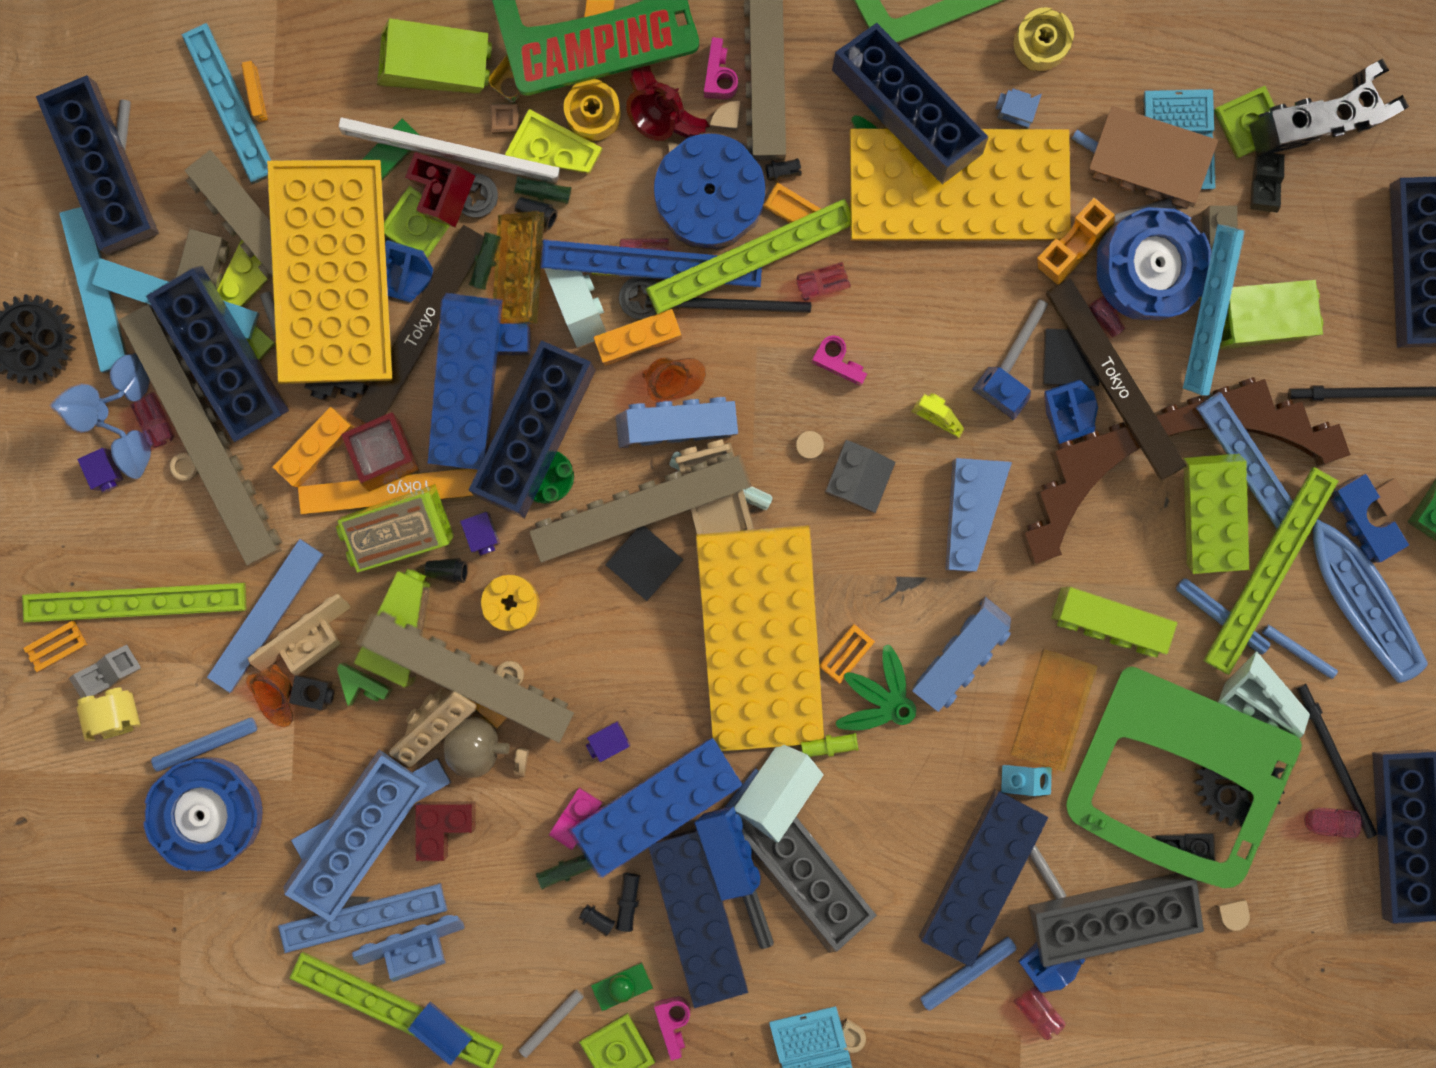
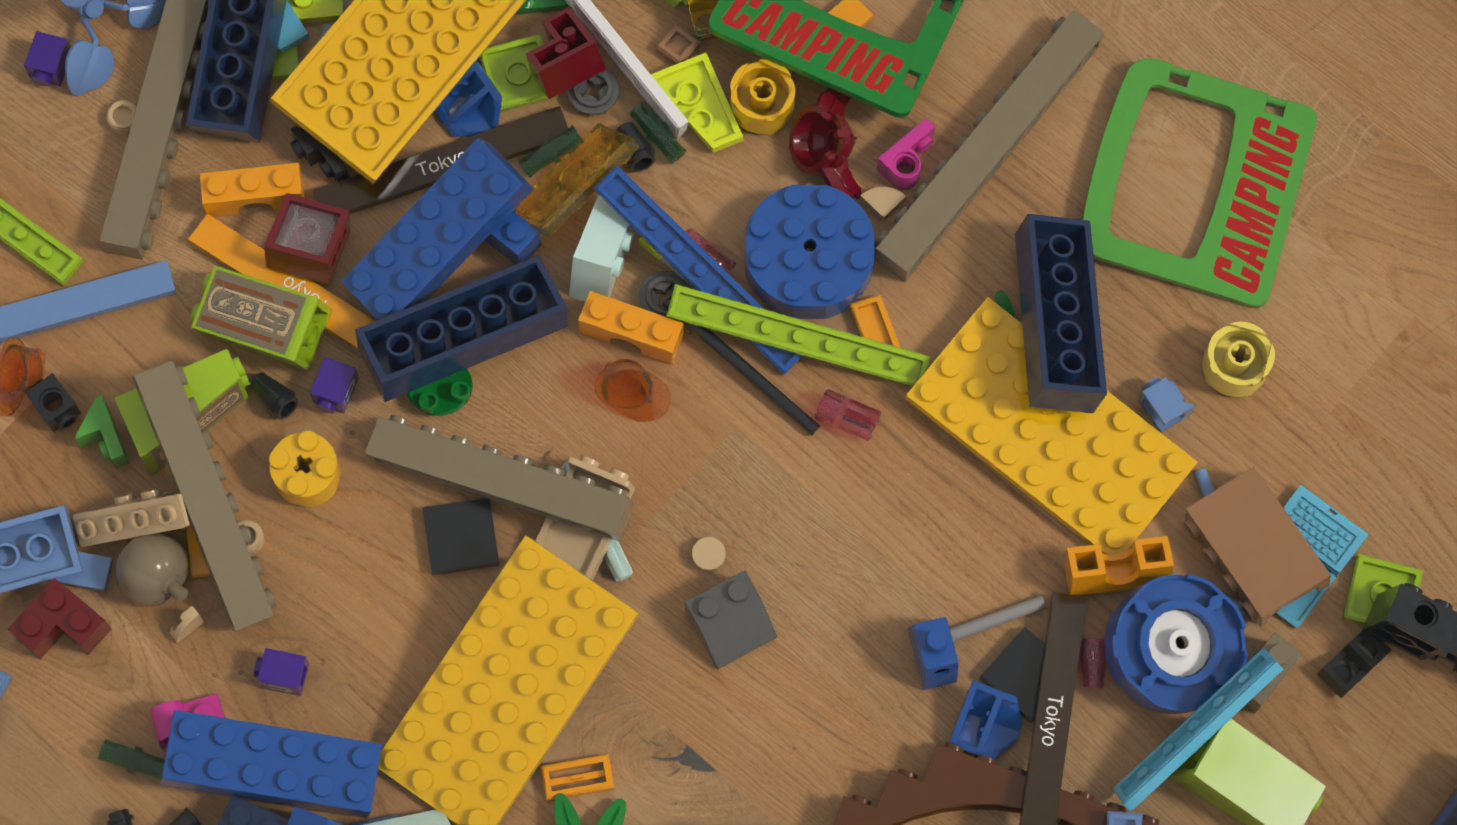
camera: 40 degrees right, 15 degrees down
(152, 420) = (132, 54): clear pink arm -> none
(305, 640) = (89, 350): tan bracket -> none
(676, 423) = (601, 430): medium blue wedge -> none
(783, 169) = (895, 287): black pin -> none
(849, 371) = (796, 498): dark pink plate -> none
(933, 410) = (849, 609): neon yellow wing -> none
(973, 504) = (818, 731): medium blue wedge -> none

